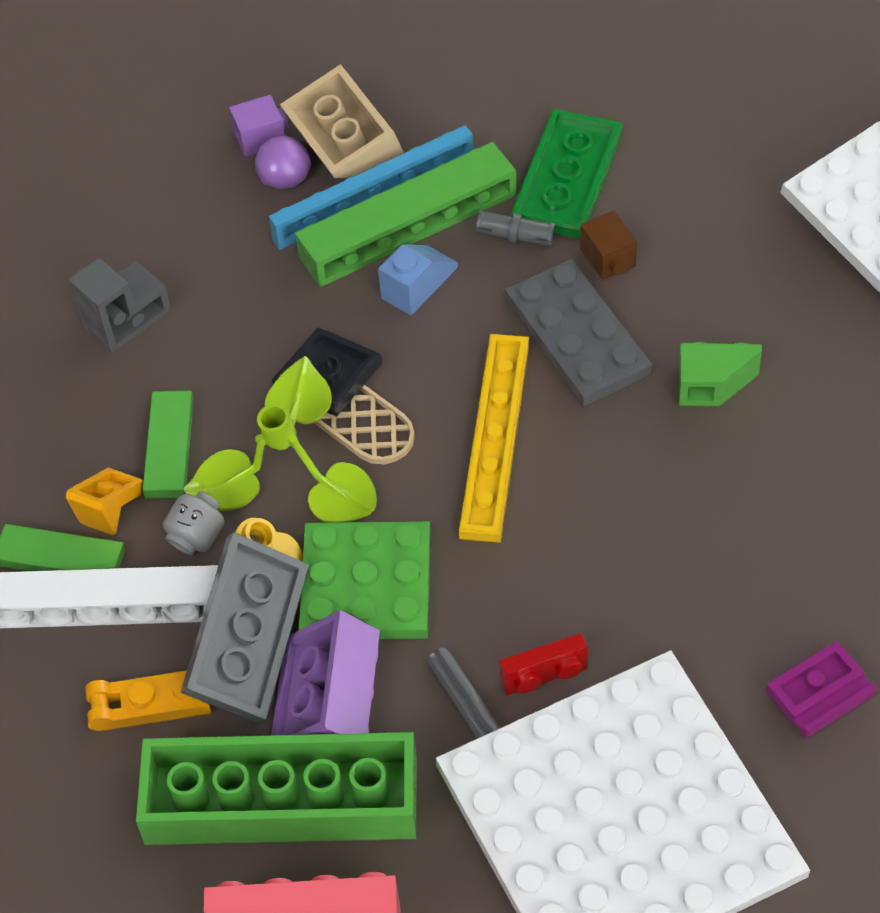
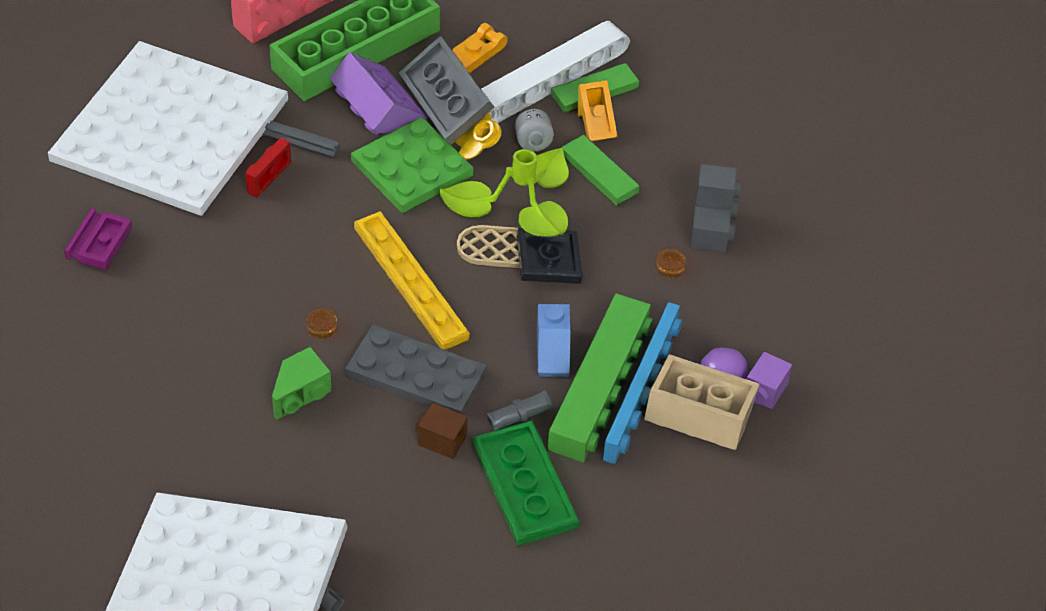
camera: 135 degrees right, 5 degrees down
(211, 298) = (670, 263): none -> clear orange tile
(633, 439) = (321, 323): none -> clear orange tile

